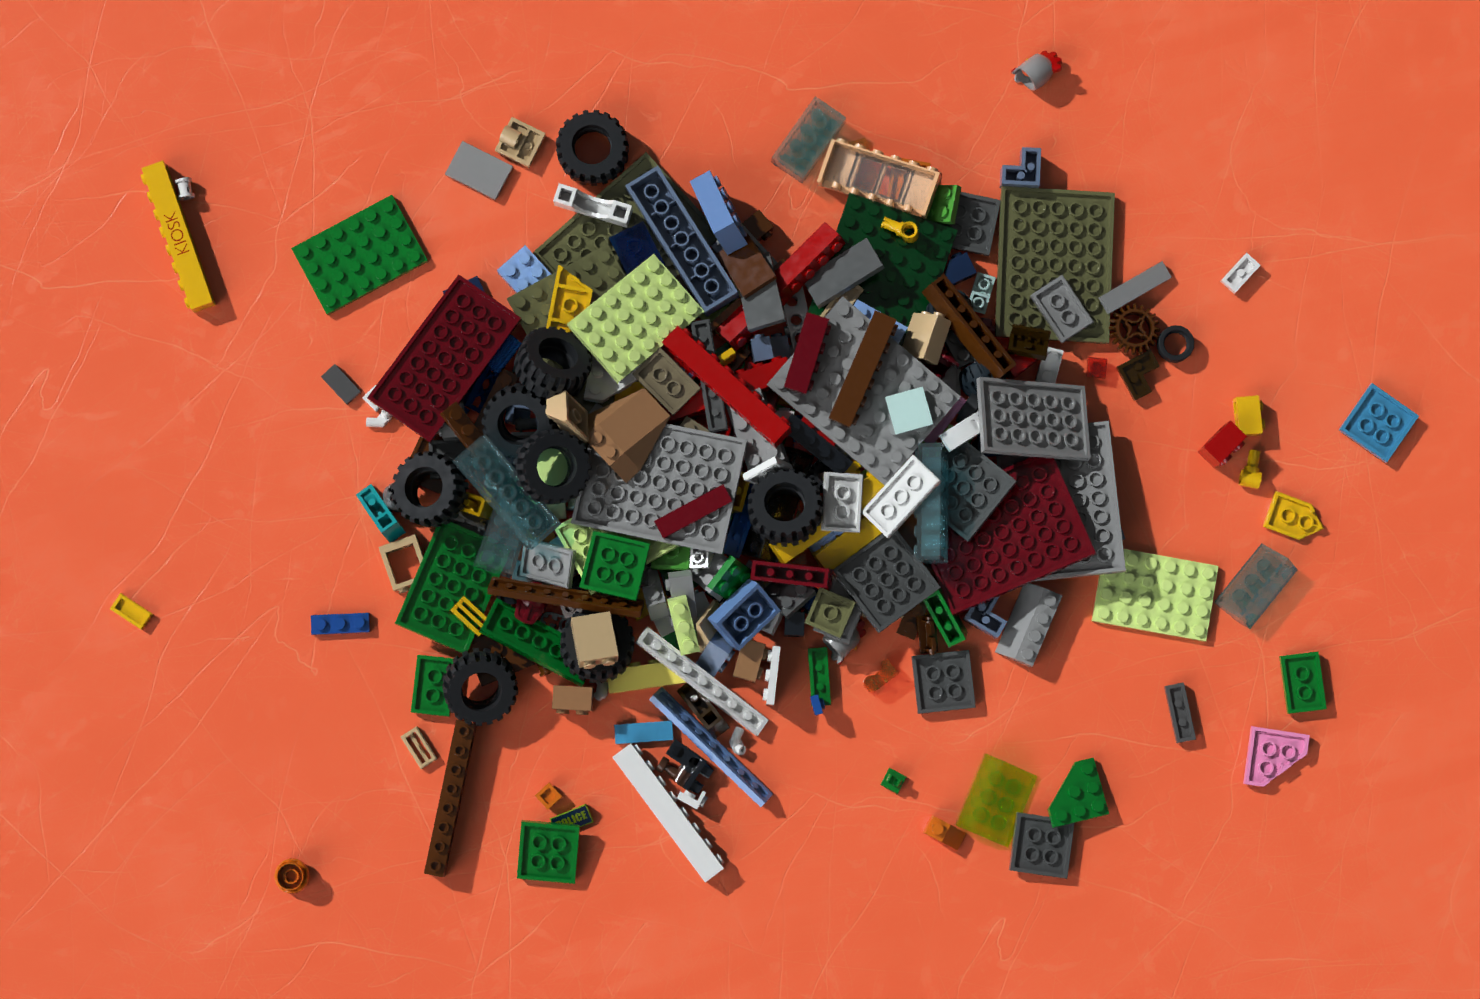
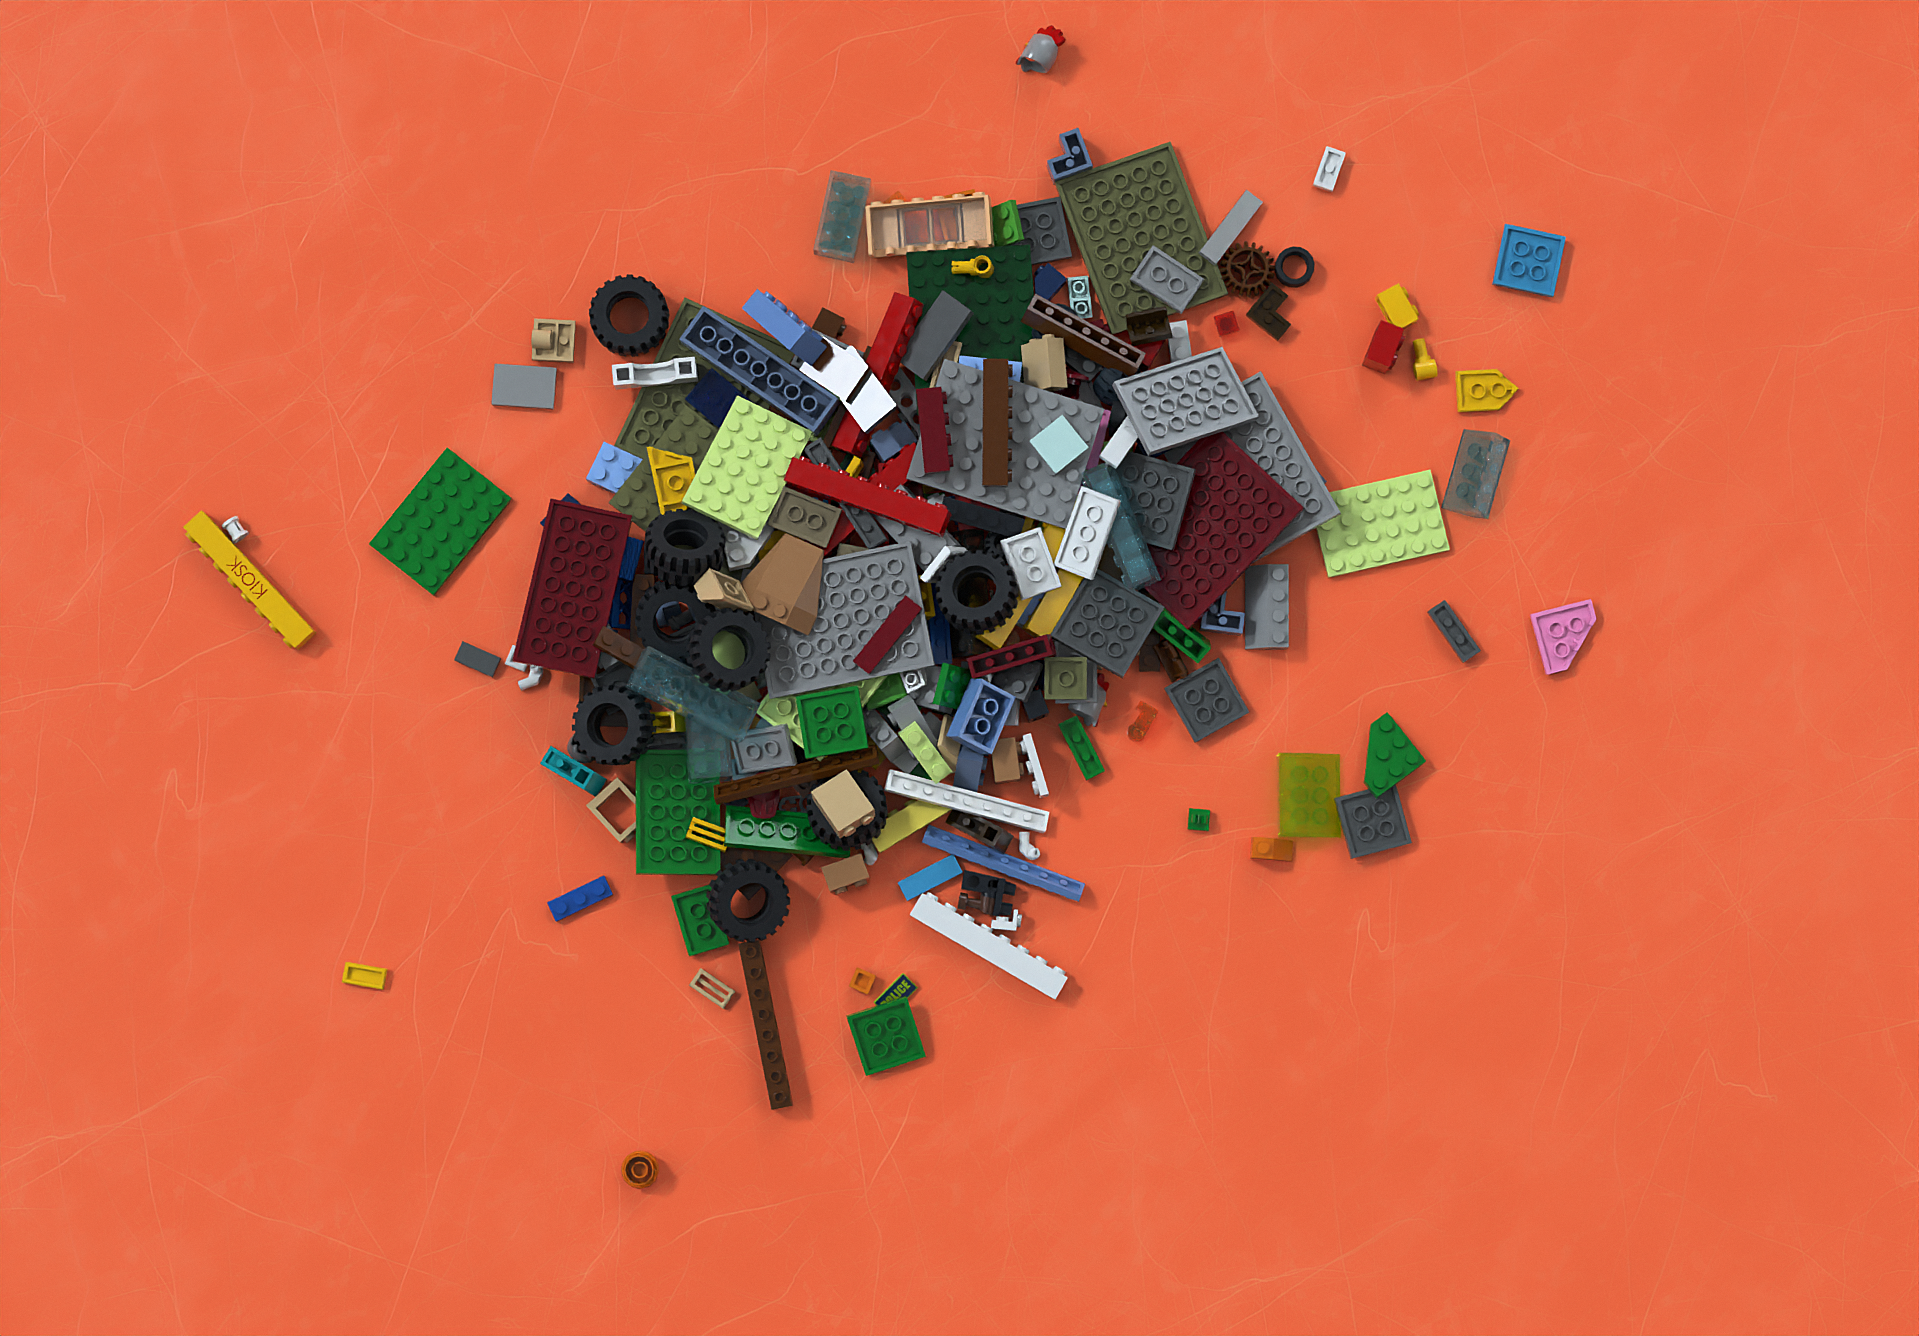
camera: 20 degrees left, 0 degrees up
(817, 704) = (1091, 775): blue plate -> none
(1302, 682) = (1562, 550): green plate -> none

